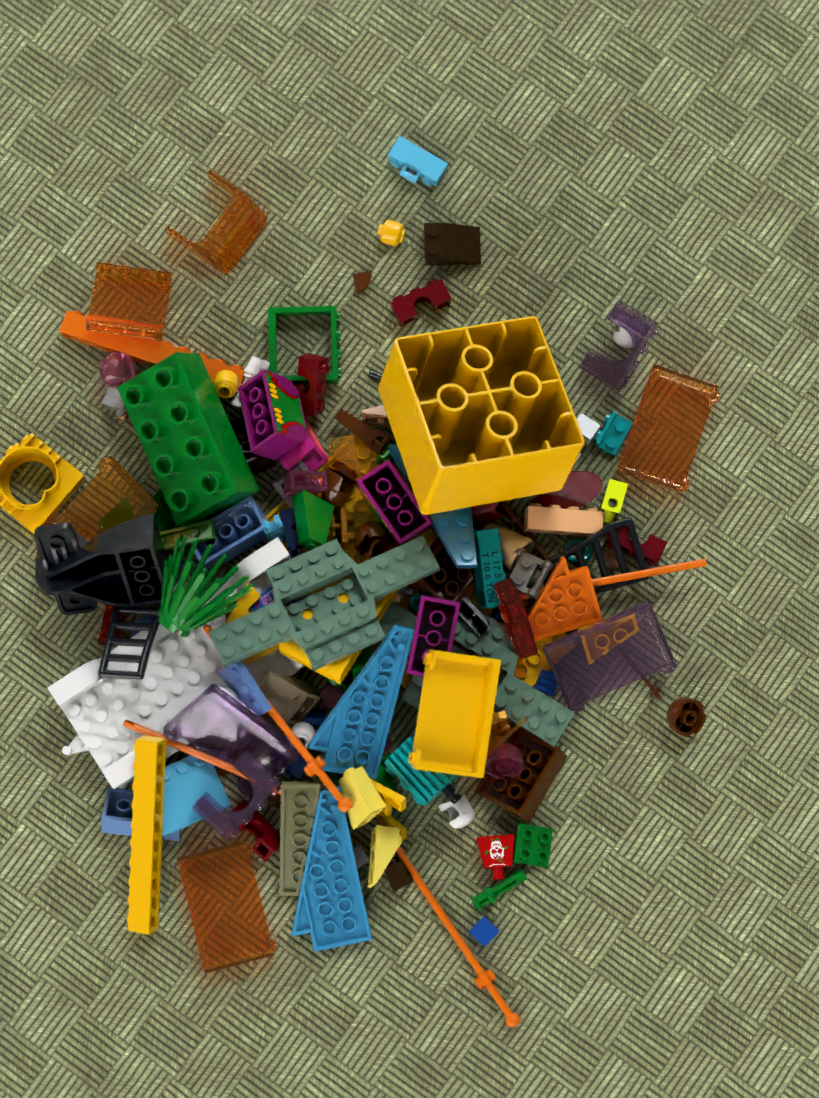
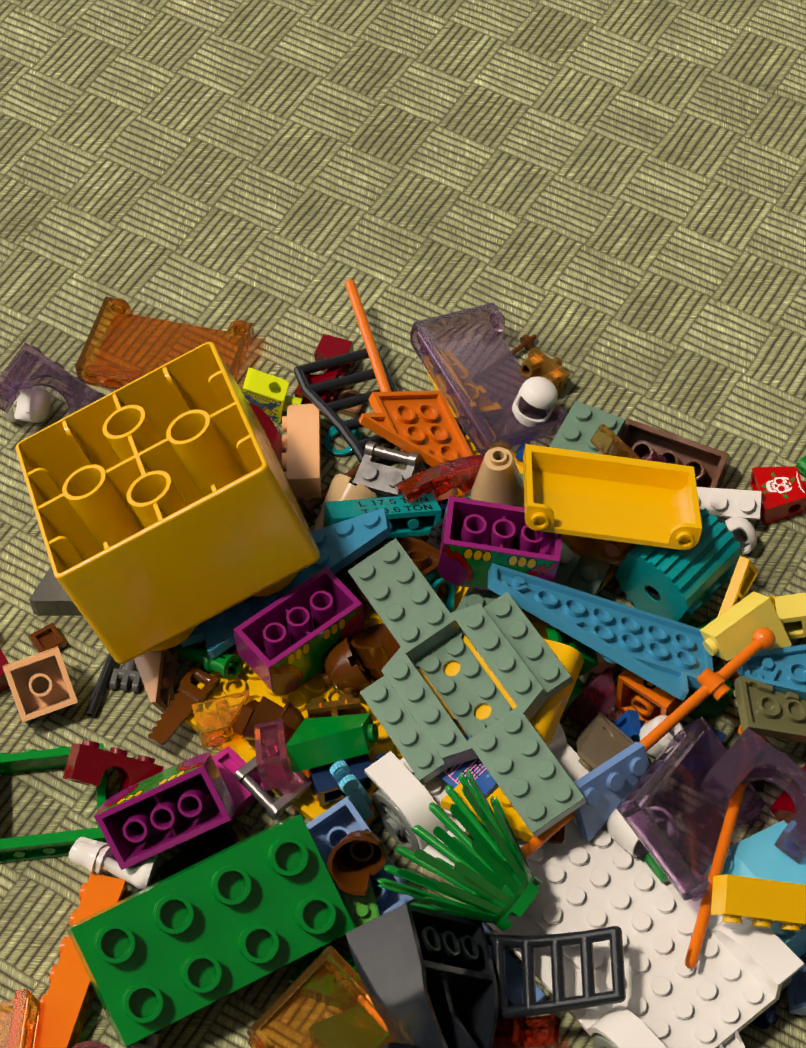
camera: 90 degrees left, 25 degrees down
(218, 527) = (356, 860): none -> reddish brown helmet
(226, 383) = (114, 885): yellow head -> none
(380, 336) = (40, 684): none -> light nougat brick
(487, 805) = (730, 502): none -> white plate
(503, 650) = (499, 479): none -> tan cone
(533, 845) = (759, 453): green hinge -> none
(589, 688) = (538, 393): none -> white helmet
(623, 702) = (541, 365): none -> pearl gold hips
(686, 716) = (556, 301): reddish brown cylinder -> none

